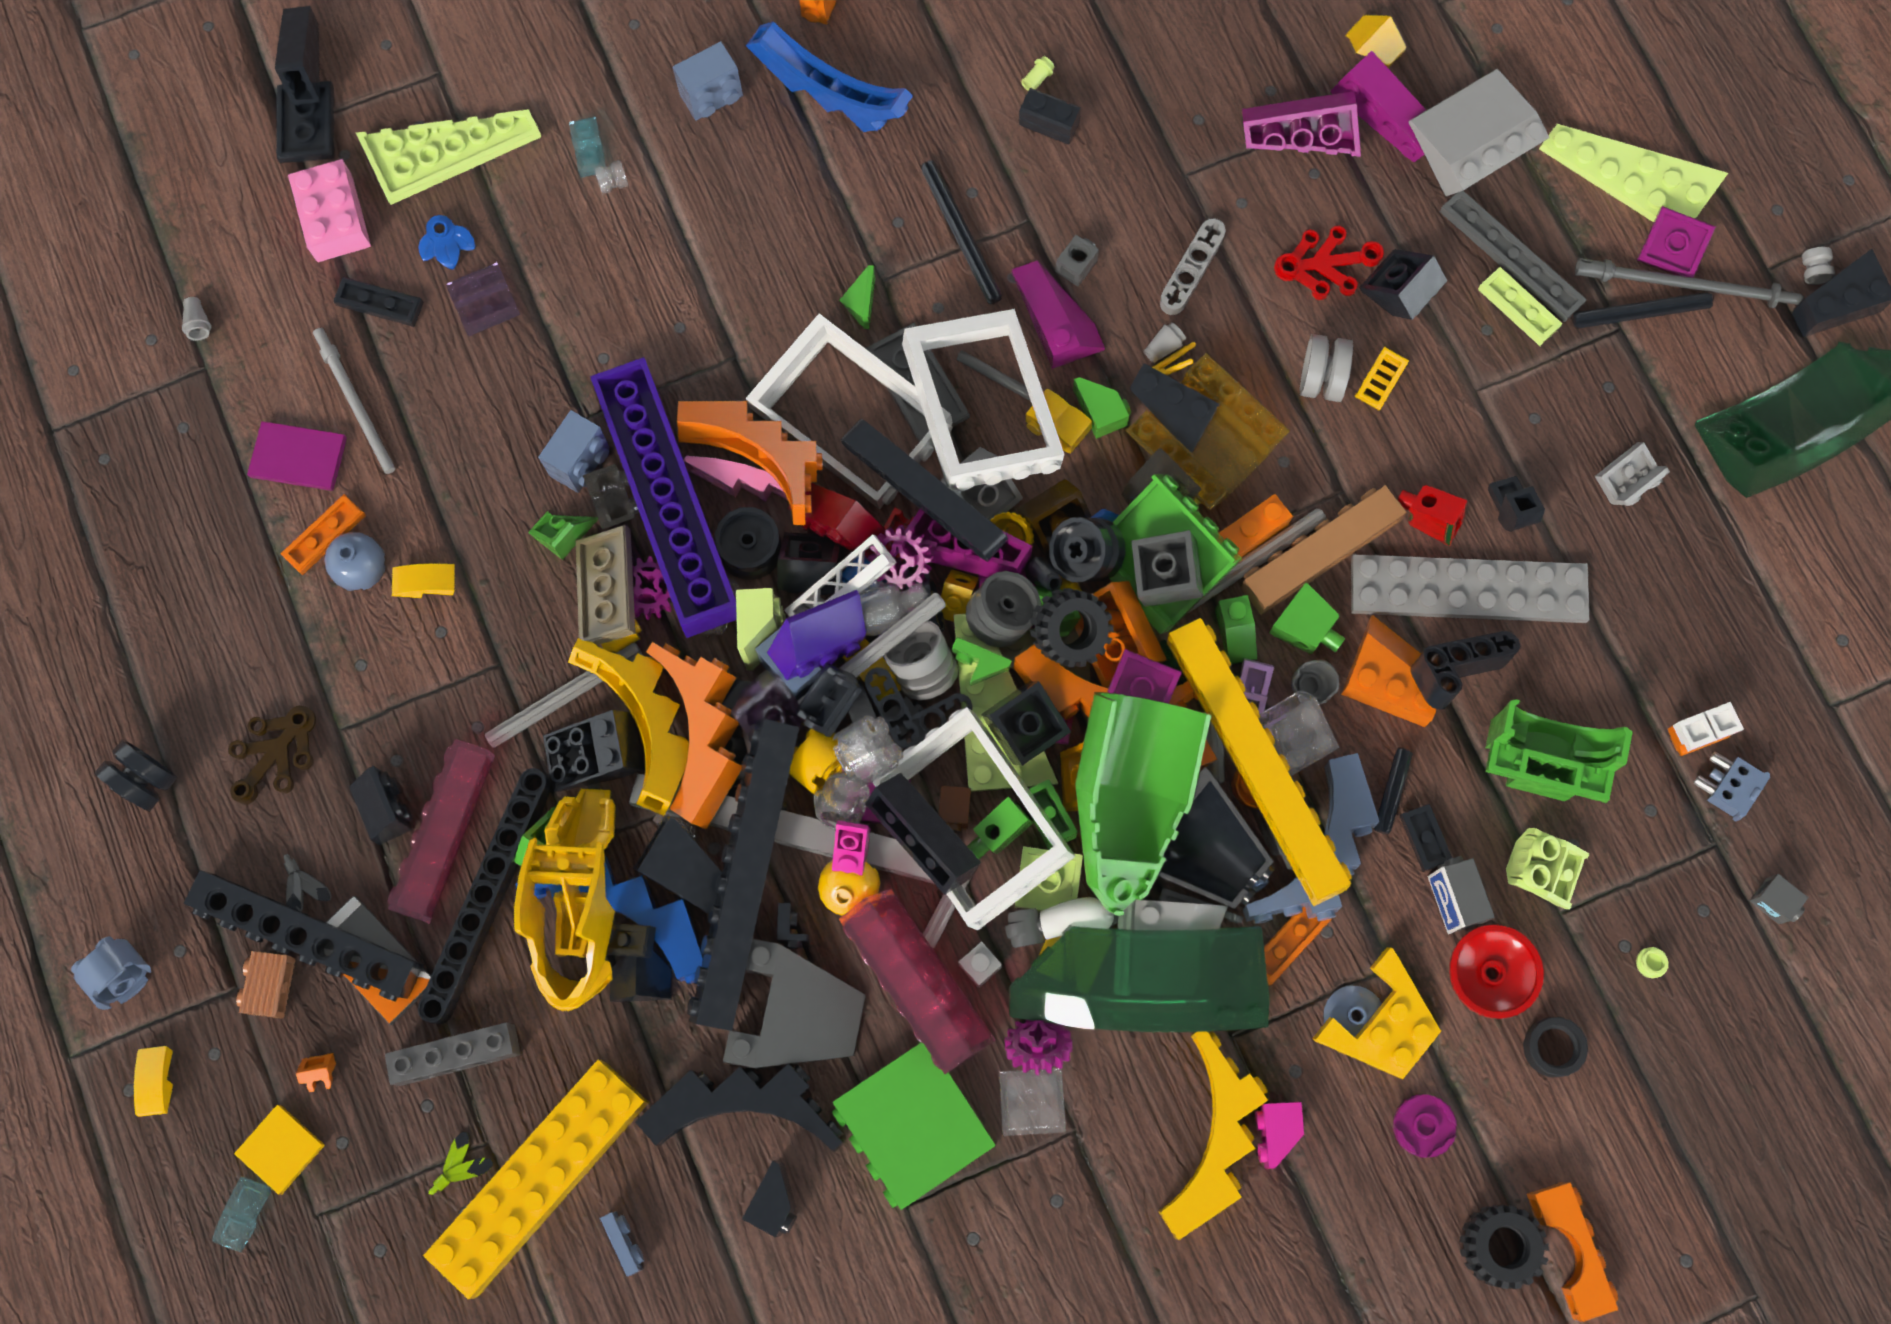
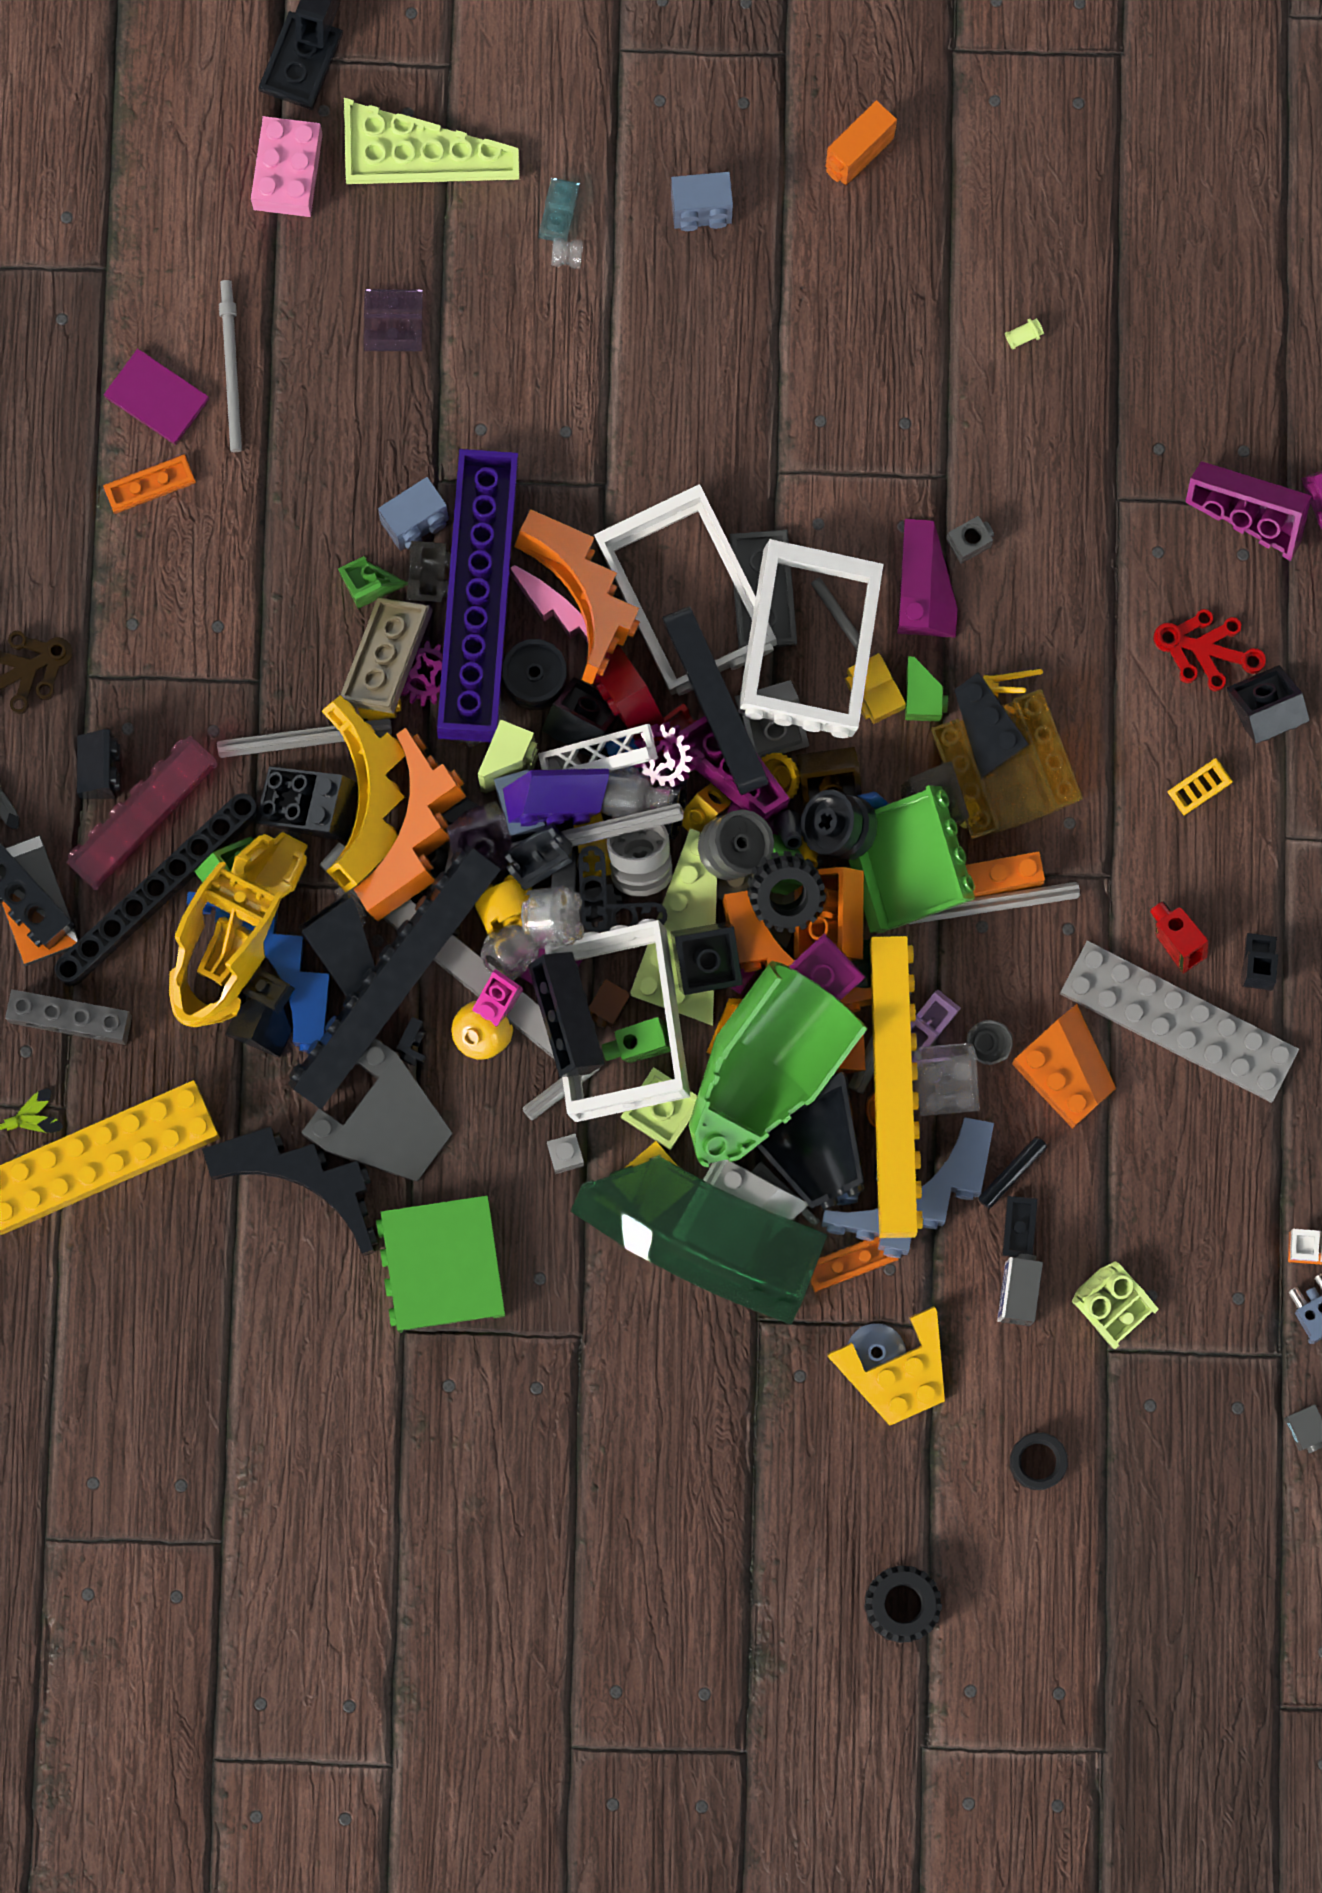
camera: 20 degrees right, 5 degrees up
(195, 322) = (115, 220): light grey cone -> none
(354, 561) = (168, 524): sand blue cylinder -> none
(378, 301) = (294, 277): black tile -> none
(423, 578) = (222, 570): yellow slope -> none
(445, 245) = (382, 250): blue plate -> none
(628, 1254) = (146, 1259): sand blue plate -> none
(773, 1203) = (290, 1272): black slope -> none
(800, 70) = (818, 263): blue arch -> none
(859, 297) = (748, 481): bright green slope -> none
(916, 980) = (502, 1140): clear pink brick -> none
(961, 232) = (874, 459): black axle -> none
(988, 663) = (698, 889): bright green slope -> none
(1027, 926) = (626, 1142): white piece -> none
(1032, 1102) = (554, 1293): clear brick -> none
(1038, 1045) = (582, 1247): magenta gear -> none
(1049, 116) = (1013, 383): black brick -> none
(1053, 807) = (694, 1047): bright green brick -> none
(1165, 342) = (1013, 658): light grey cone -> none
(1167, 568) = (901, 877): dark grey brick -> none
(1194, 267) = (1079, 597): light grey beam -> none
(1232, 1099) = (731, 1373): yellow arch -> none
(1237, 628) = (944, 961): bright green slope -> none
(1280, 1129) = (760, 1418): dark pink slope -> none
(1308, 622) = (1012, 984): bright green torso -> none
(1323, 549) = (1060, 923): medium nougat brick -> none
(1330, 369) = (1151, 756): light grey wheel -> none
(1424, 1126) = (889, 1474): magenta tile -> none
(1443, 664) = (1166, 1090): black beam -> none
(1516, 968) = (1035, 1358): red dish -> none
(1554, 755) = (1166, 1205): bright green piece -> none
(1587, 1290) = (967, 1596): orange arch -> none
(1652, 962) = (1164, 1430): yellowish green plate -> none

